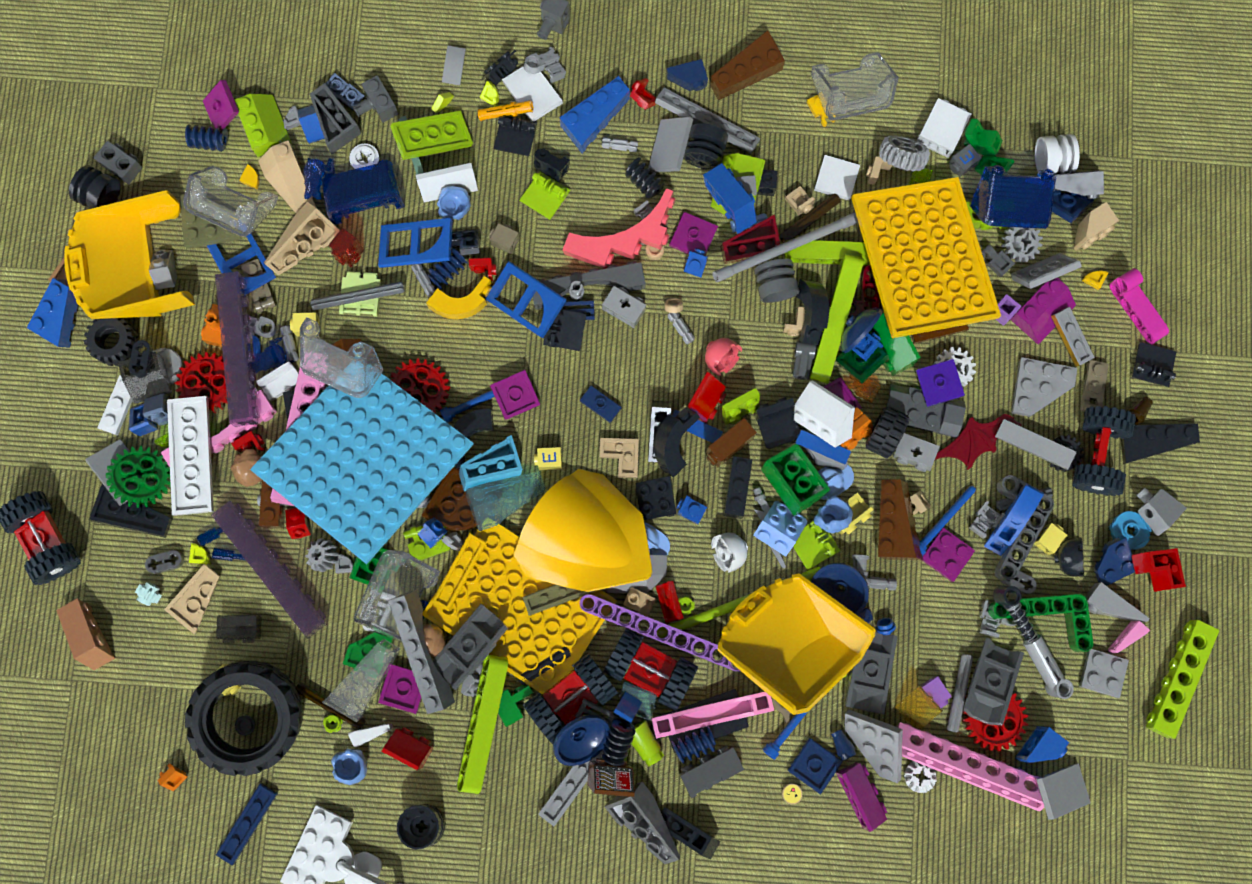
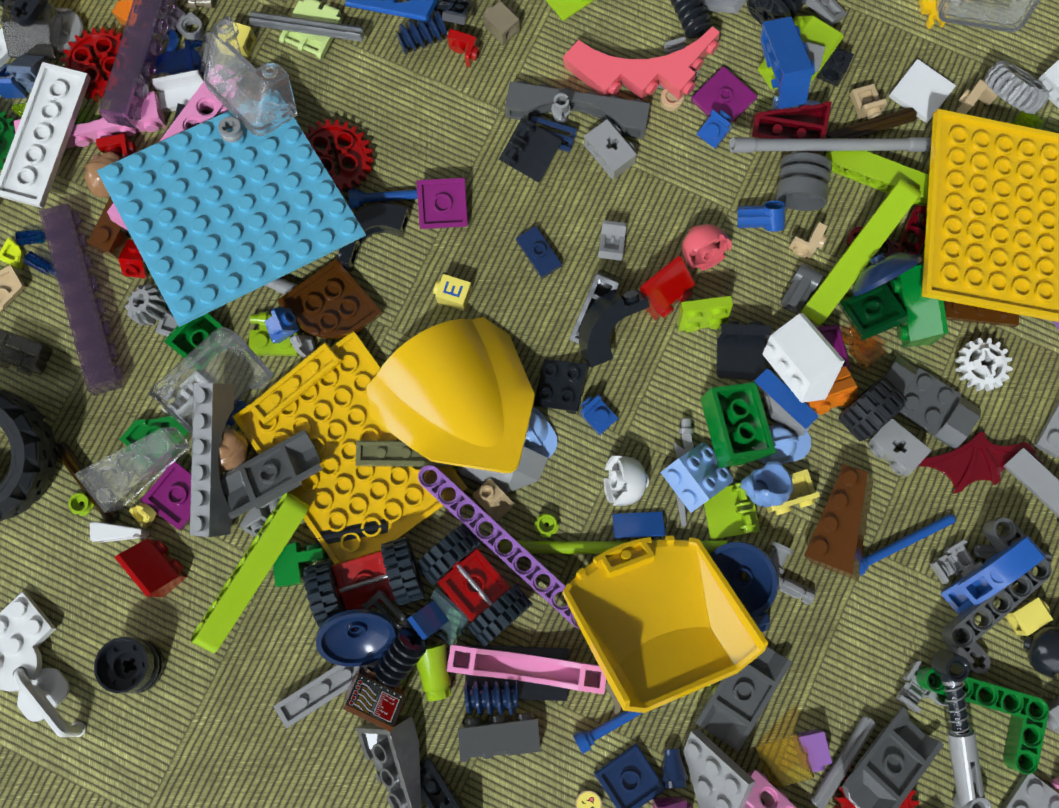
camera: 25 degrees right, 0 degrees up
(339, 407) = (229, 122): none -> light grey bush
(349, 766) = (76, 562): medium blue hair -> none
(383, 712) = (143, 514): none -> light yellow tile
(423, 279) = (390, 37): light grey axle -> none
(460, 307) = (420, 82): yellow arch -> none
(493, 465) = (380, 275): medium azure wedge -> none
(501, 498) = (374, 315): clear light blue wedge -> none
(551, 300) = (526, 107): blue window -> none
(626, 451) = (546, 318): tan plate -> none
(652, 376) = (612, 240): none -> light grey bracket
(669, 602) = (529, 513): red tile -> none
(673, 305) = (669, 168): tan tile -> none
(681, 327) = (668, 197): light grey axle -> none
(703, 430) = (648, 328): blue sticker -> none
(730, 443) = (675, 352): reddish brown brick -> none
(738, 487) = (663, 408): black arch -> none
(751, 579) = (638, 525): none -> blue slope
(759, 315) = (769, 216): none -> blue piece
(816, 310) = (839, 234): black arch -> none
(867, 346) = (886, 296): blue bracket -> none
(885, 626) = (781, 644): blue plate -> none
(920, 502) = (880, 510): tan tile -> none
(940, 383) = (960, 374): dark purple plate -> none
(947, 555) = (891, 587): magenta plate -> none

